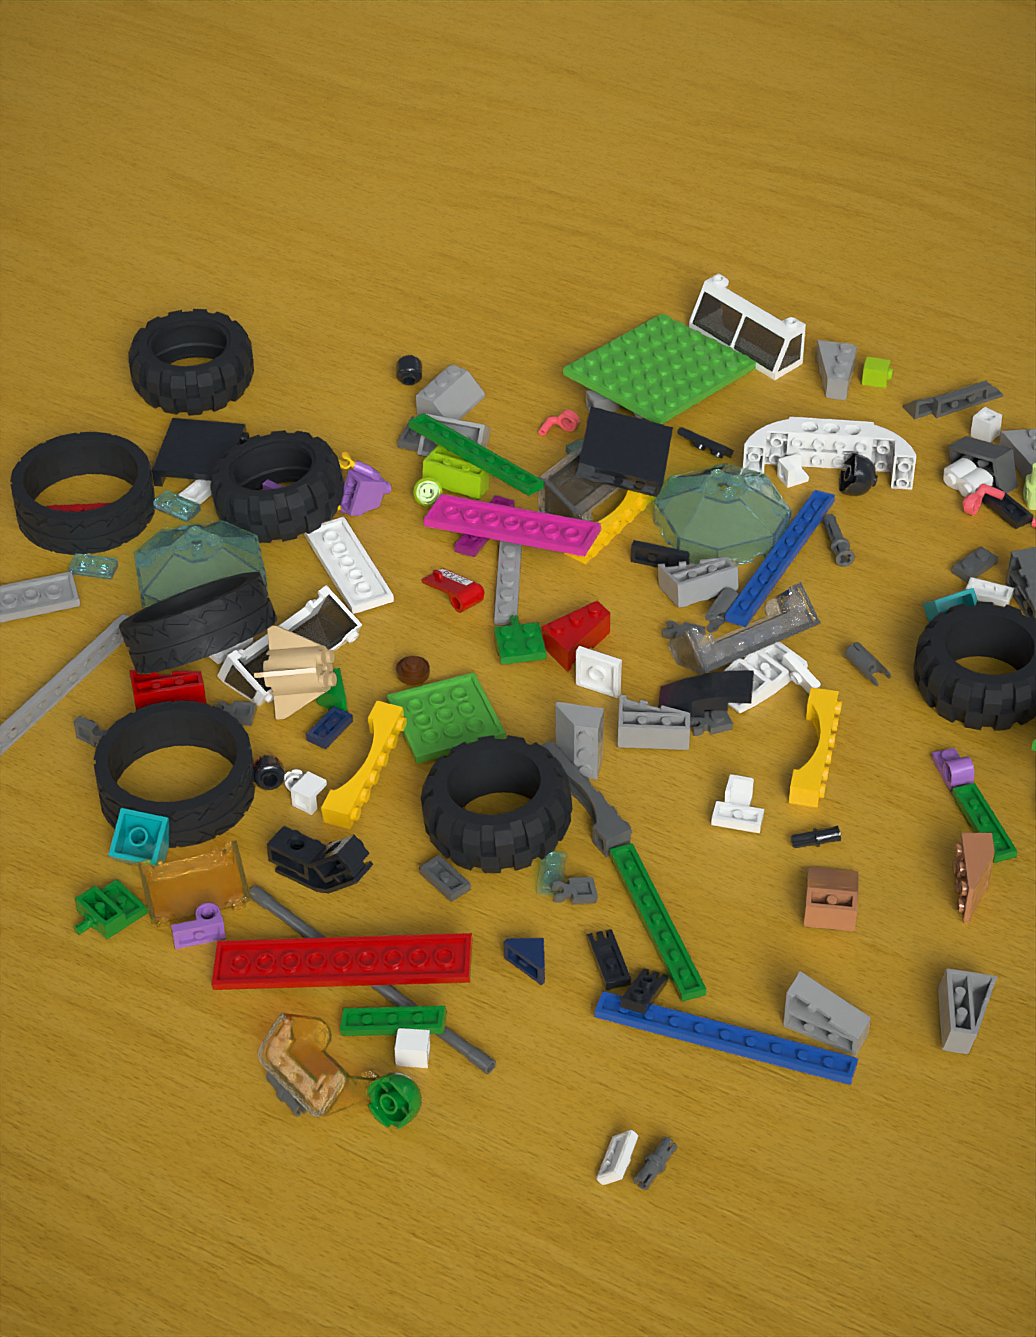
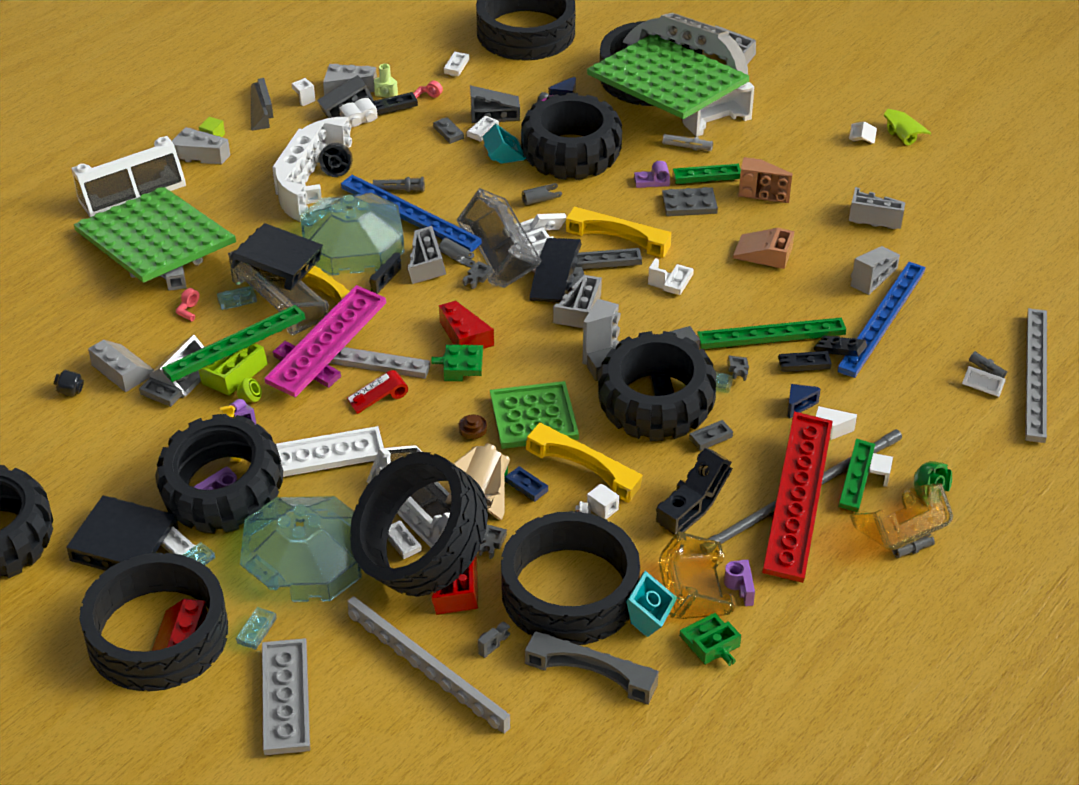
camera: 80 degrees left, 0 degrees up
(43, 852) = (549, 651): none -> dark grey arch
(489, 992) = (842, 421): none -> white slope
(598, 672) = (518, 318): white tile -> none
(655, 1222) = (1036, 376): none -> light grey plate
(702, 443) = (246, 233): black hinge -> none
(756, 743) = (609, 258): none -> dark grey plate
(816, 837) = (705, 247): black axle -> none
(917, 813) = (689, 201): none -> dark grey plate
(973, 502) = (386, 114): coral plate -> none

